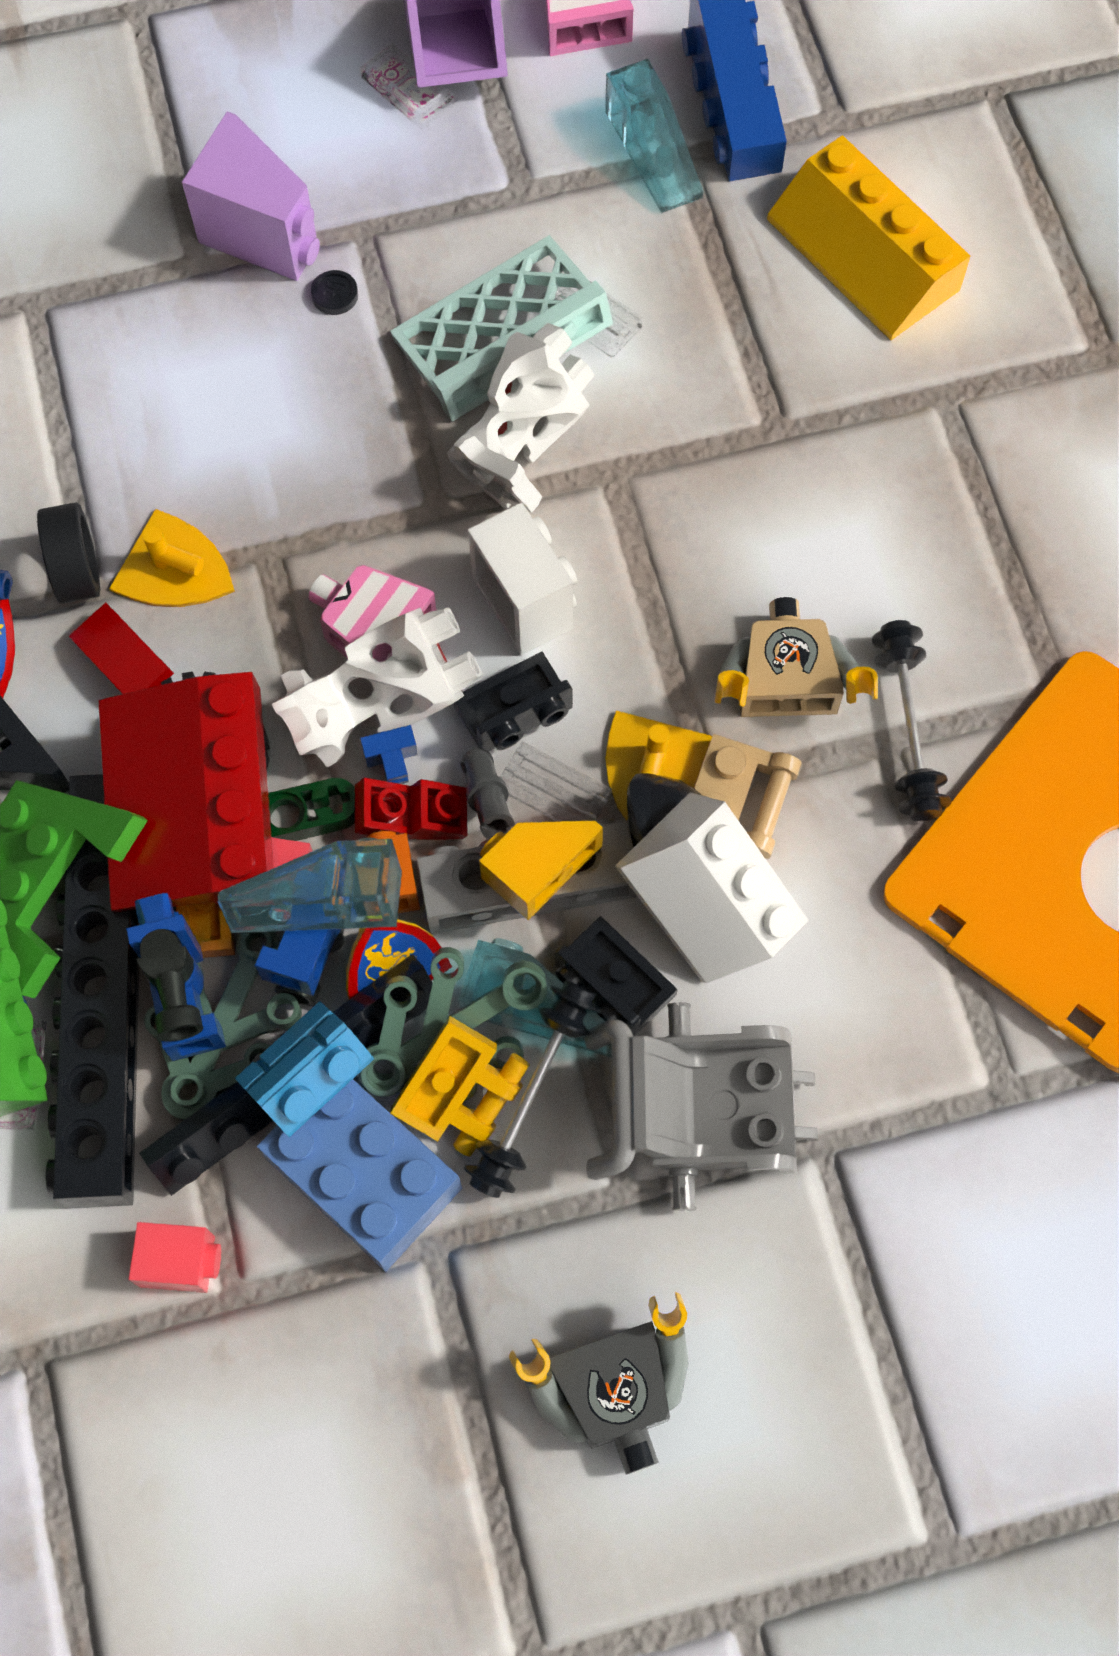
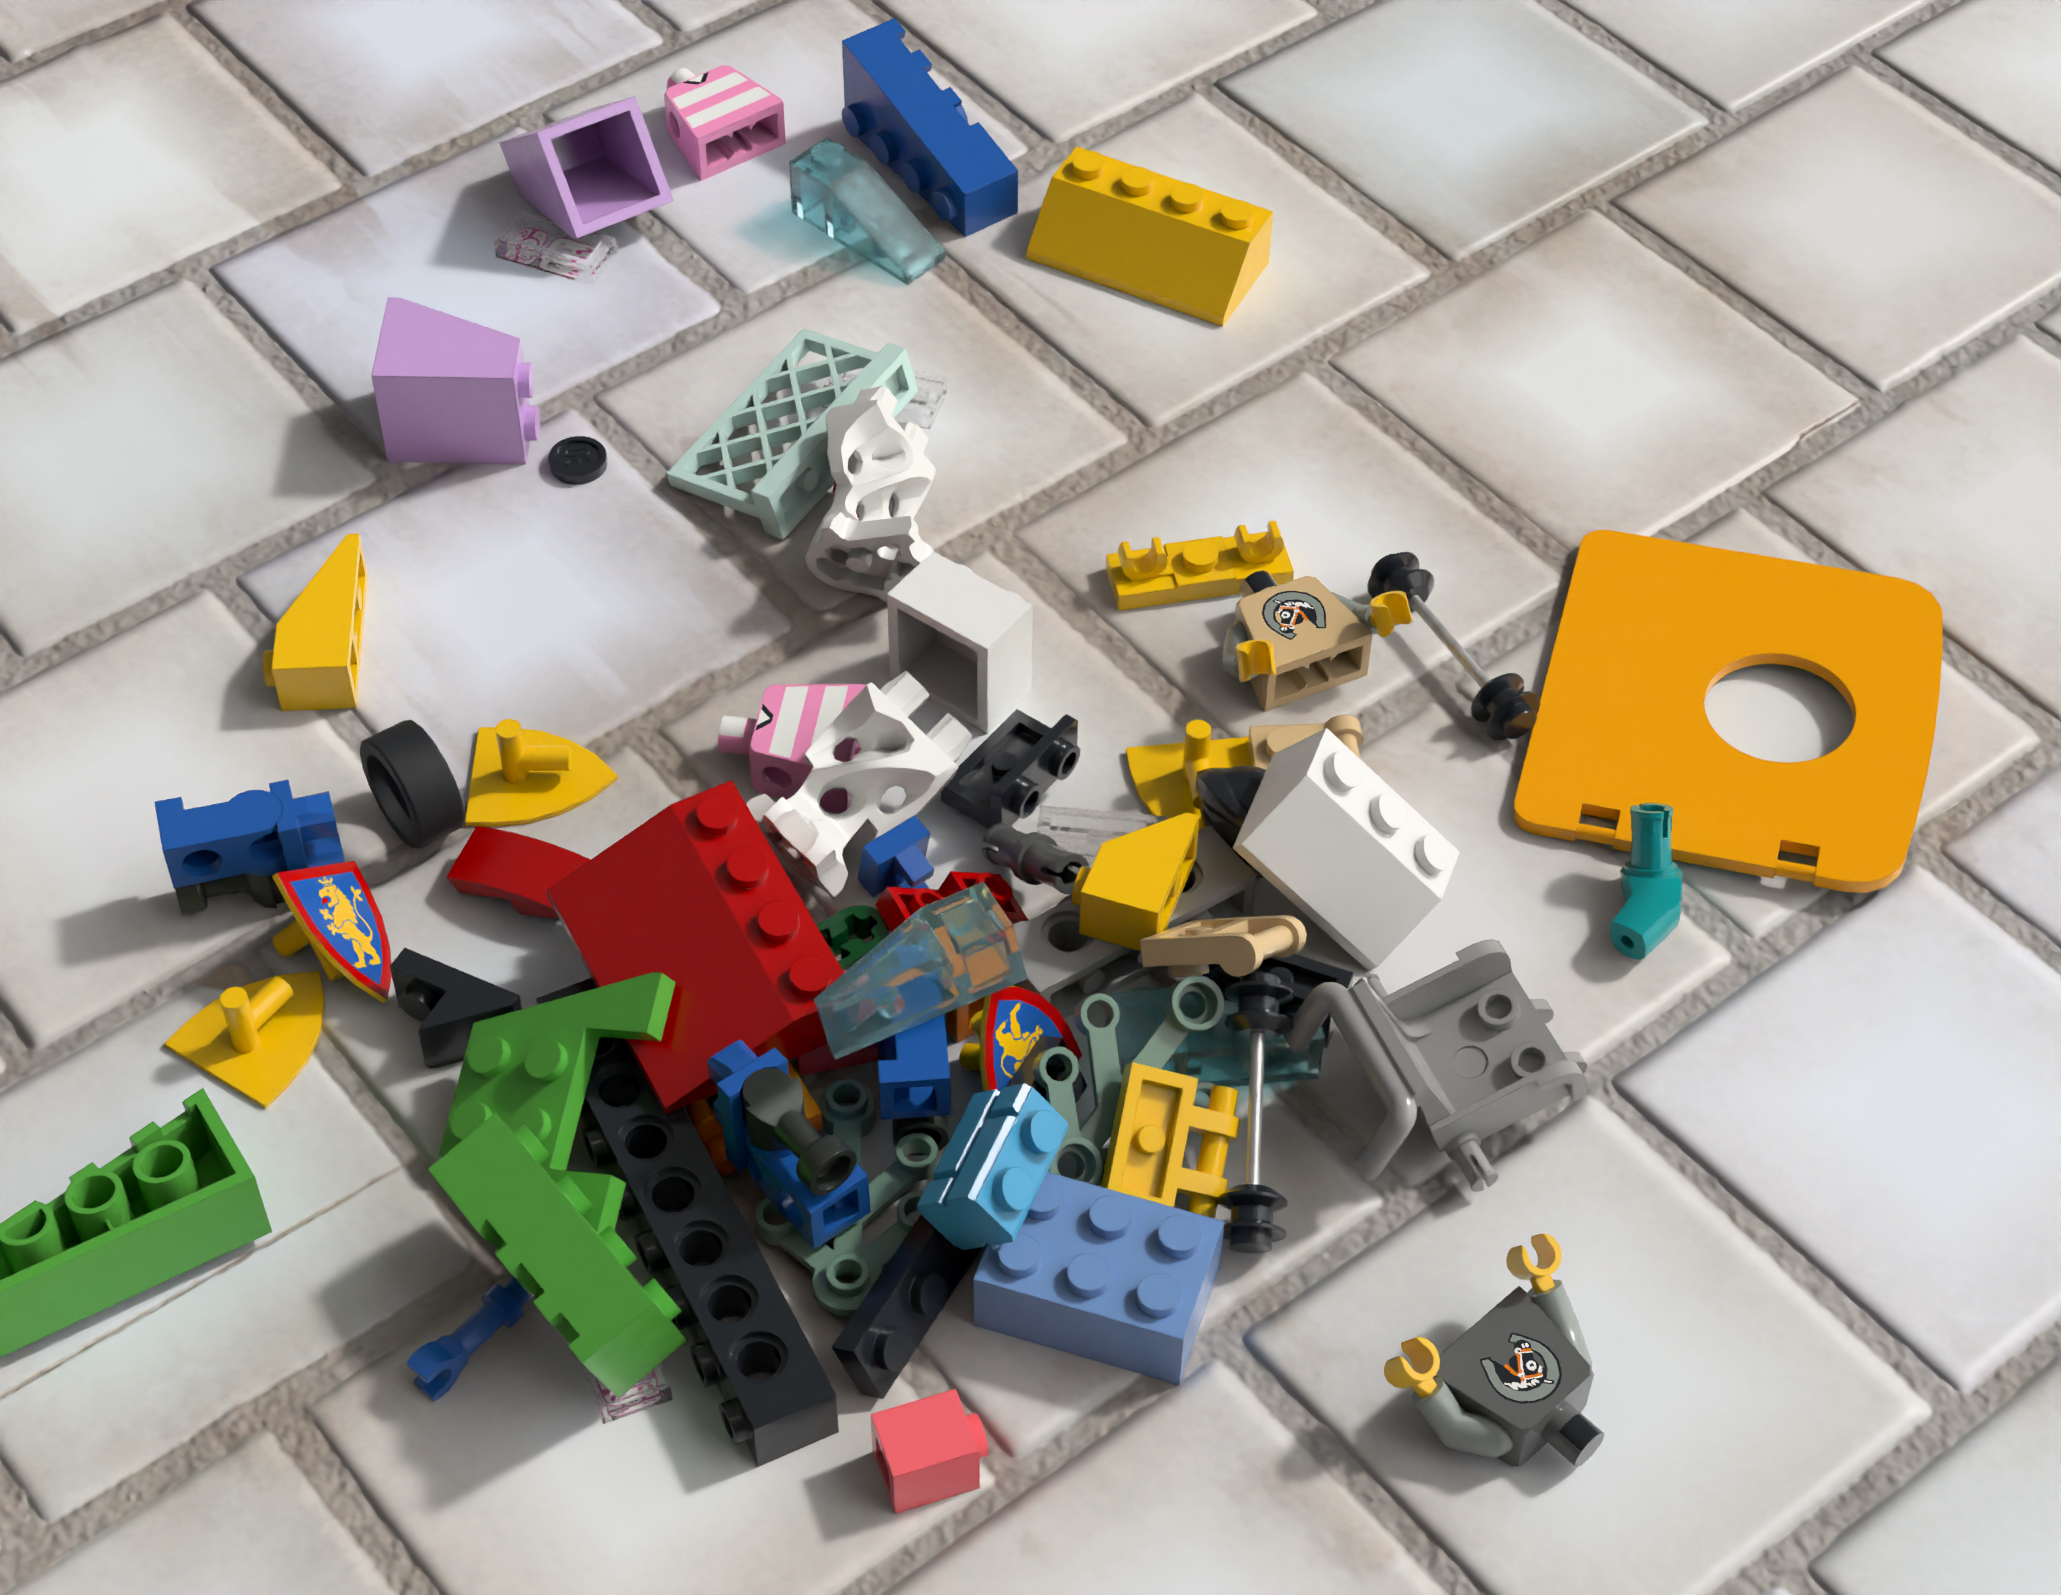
camera: 25 degrees left, 20 degrees down
(76, 387) = (321, 636): none -> yellow slope
(560, 929) = (1233, 943): none -> tan plate
(752, 568) = (1195, 567): none -> yellow plate
(950, 1003) = (1648, 884): none -> teal arm

